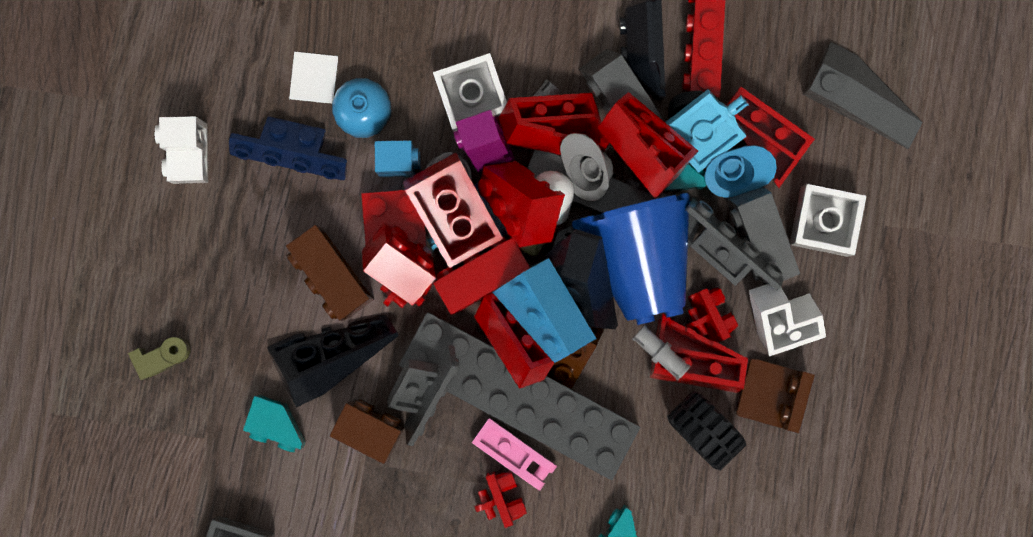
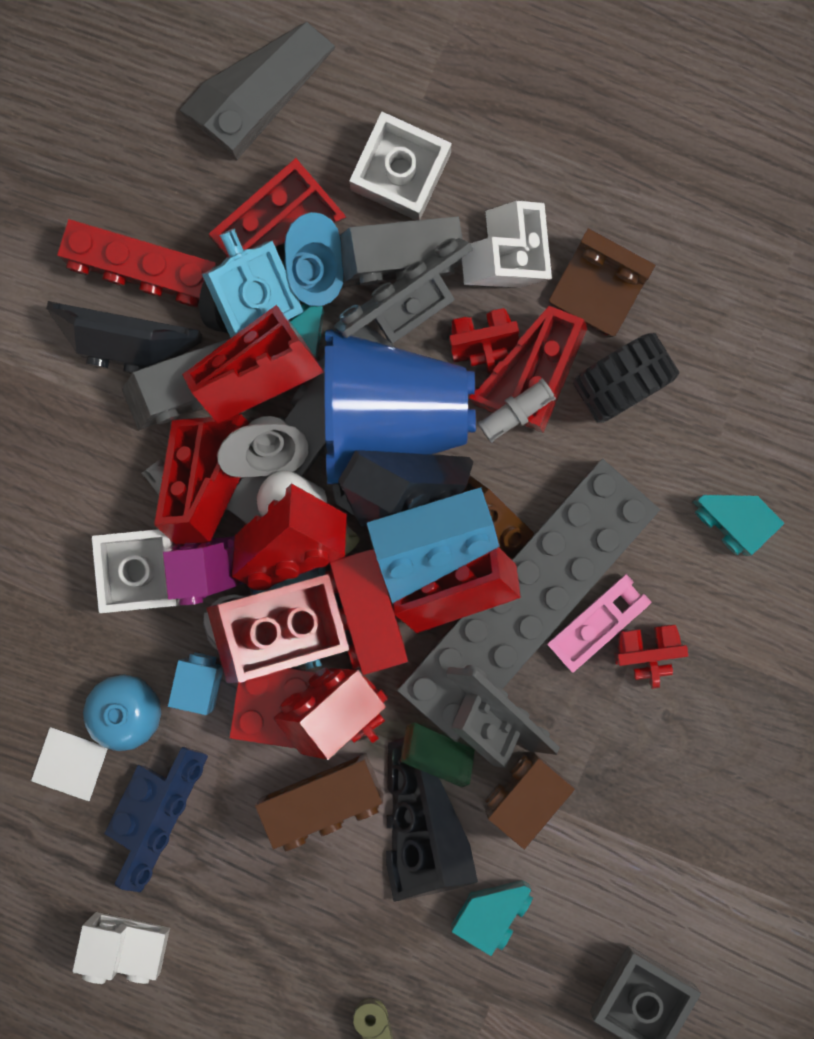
camera: 70 degrees left, 0 degrees up
(385, 354) = (437, 755): none -> clear green tile

